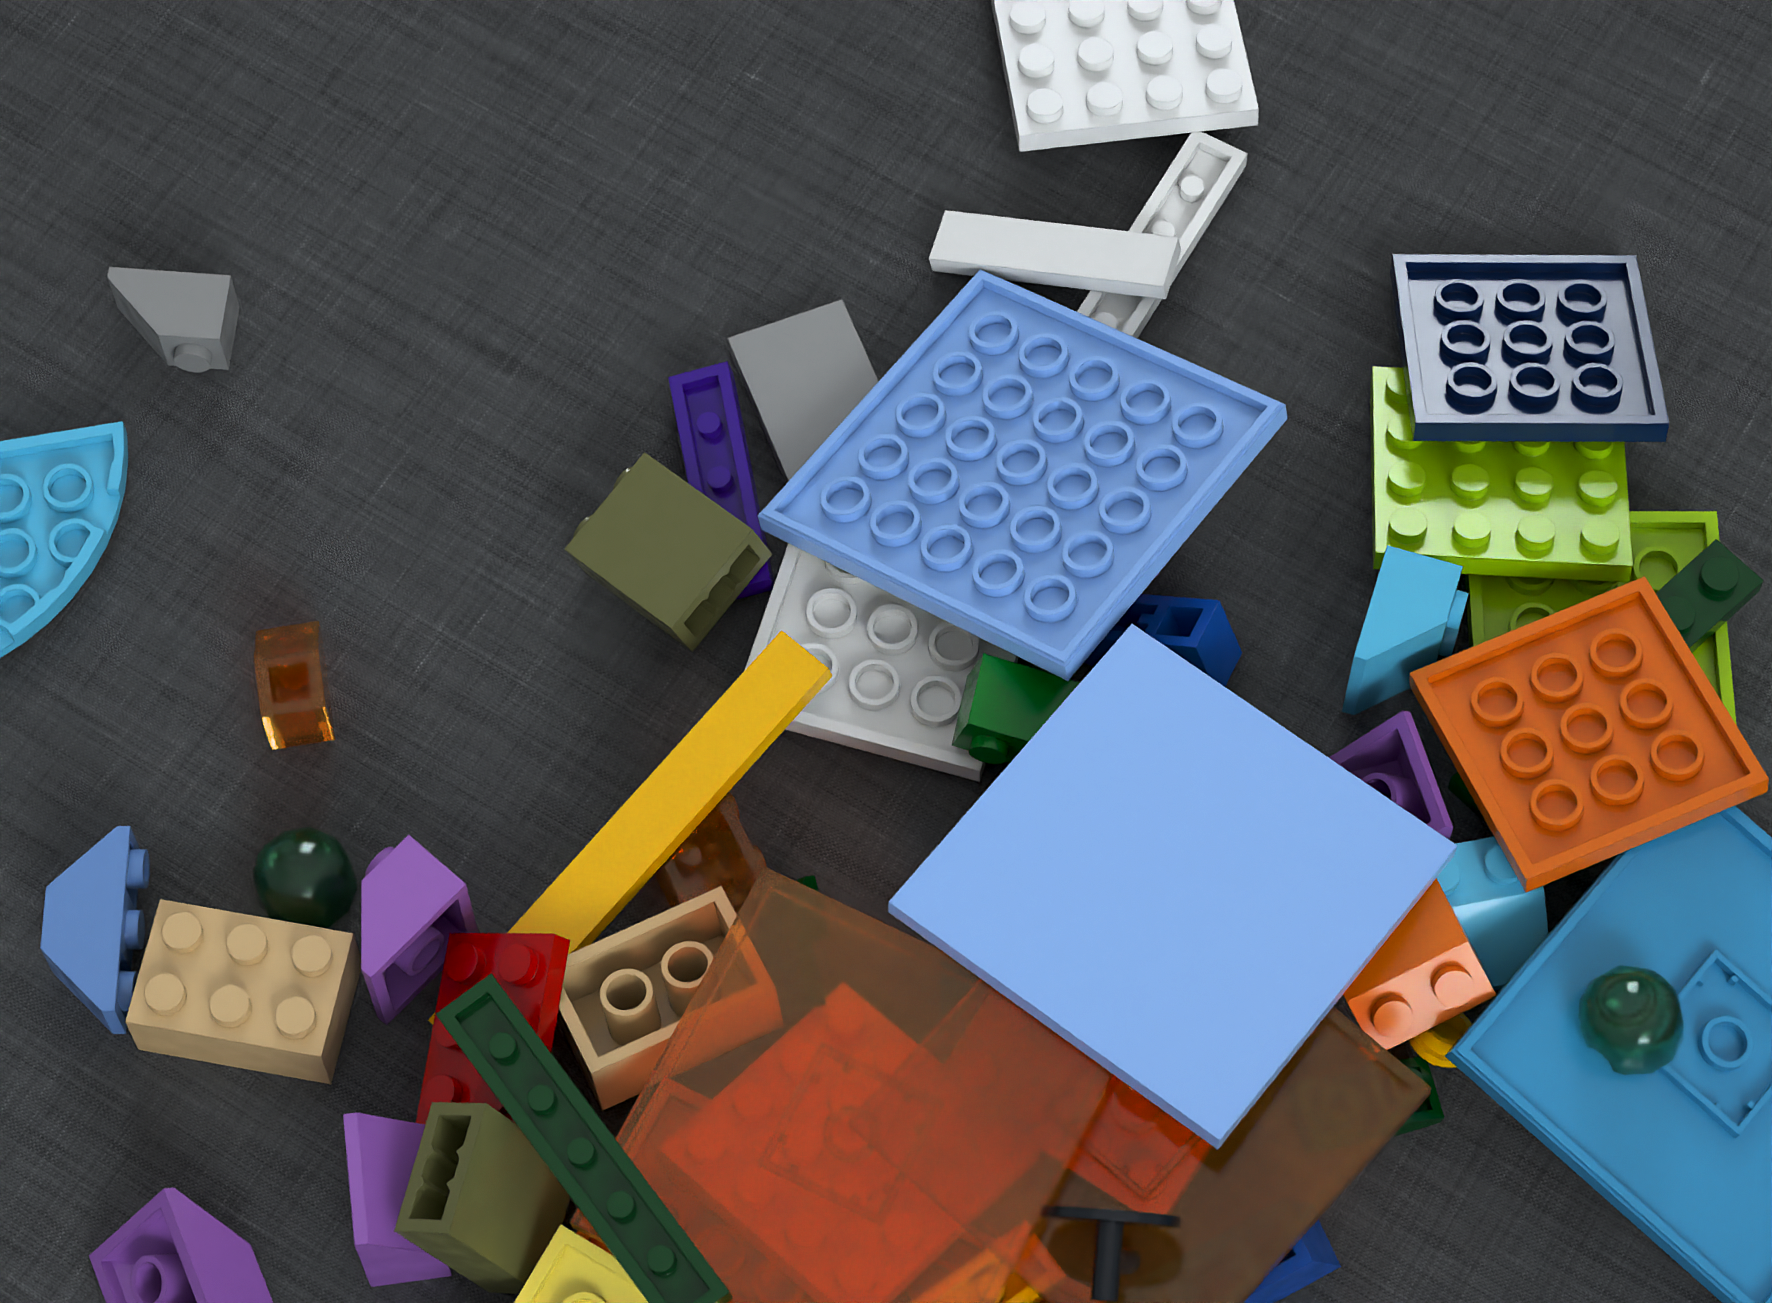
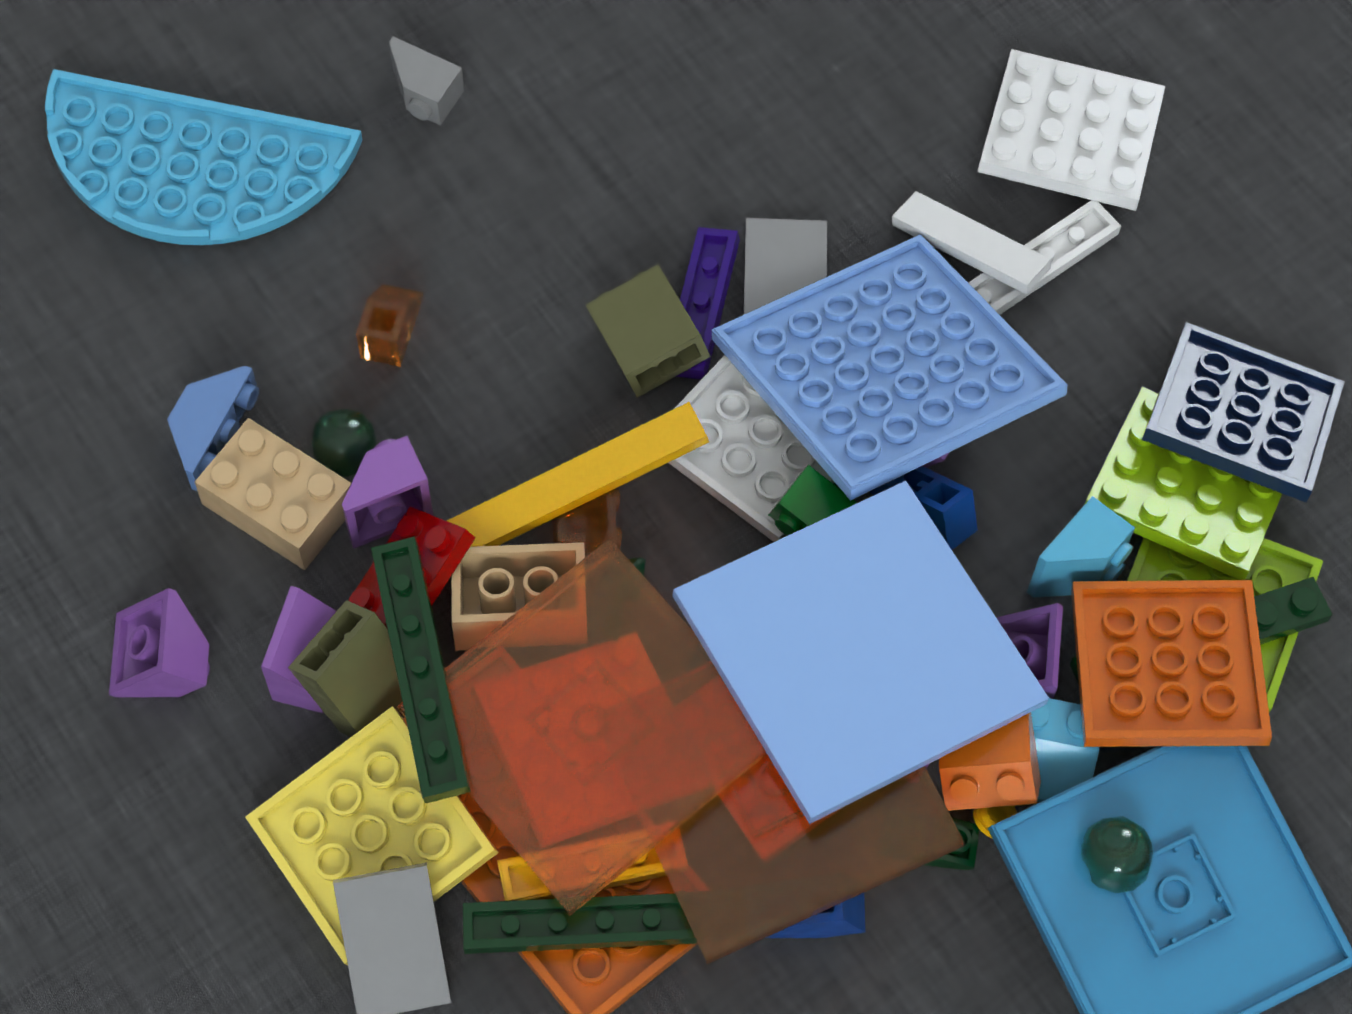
camera: 20 degrees right, 0 degrees up
(1109, 1255) = (712, 858): black shield -> none

